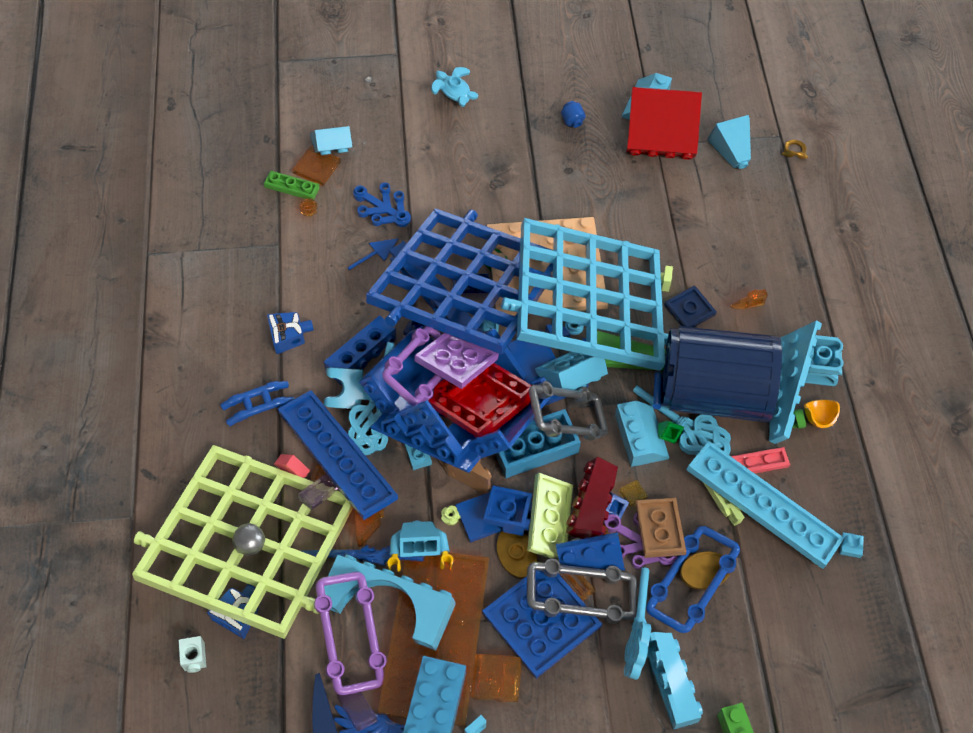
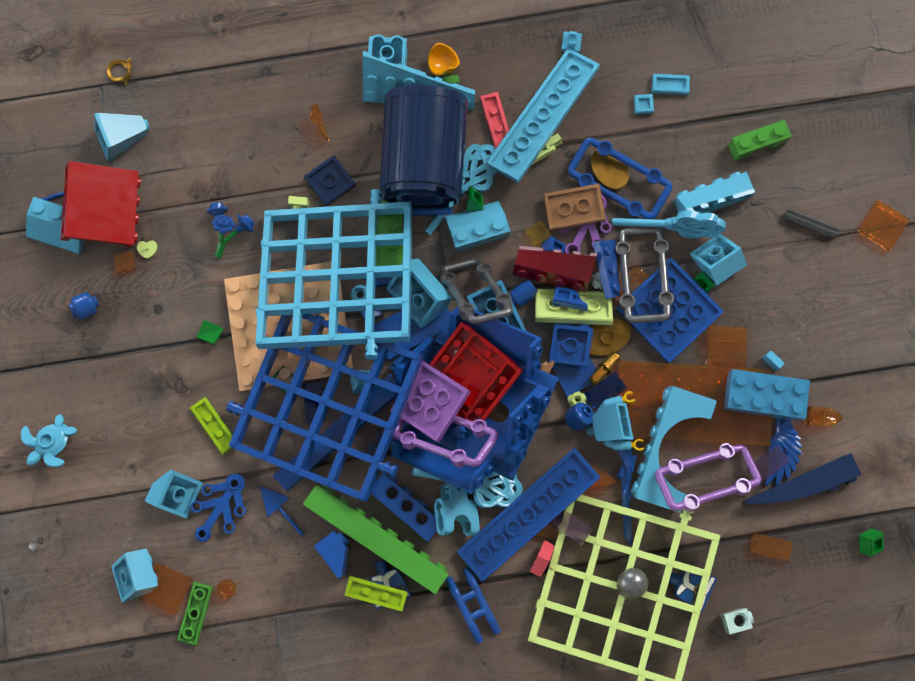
camera: 95 degrees left, 20 degrees up
(265, 703) = (771, 547): none -> clear orange tile
(281, 312) = (376, 593): none -> lime plate
(322, 281) = (335, 552): none -> blue slope
(327, 323) = (375, 538): none -> bright green brick
(398, 171) = (174, 493): none -> medium azure slope
(432, 510) = (579, 416): none -> blue head
(458, 542) = (606, 389): none -> clear blue plate
(461, 203) = (213, 424): none -> lime tile
(480, 542) = (605, 368): none -> pearl gold axle
(543, 204) = (210, 332): none -> green slope
(559, 509) = (568, 298): none -> blue tile
(567, 469) = (523, 293): none -> blue brick
(572, 661) = (704, 282): none -> green slope
(597, 678) = (719, 258): none -> medium azure slope
(612, 146) = (124, 262): none -> clear orange tile
(624, 164) = (147, 249): none -> yellowish green piece
(644, 209) = (225, 223): none -> blue plant
(782, 616) = (643, 104): none -> medium azure tile
(808, 649) = (670, 84): none -> medium azure tile

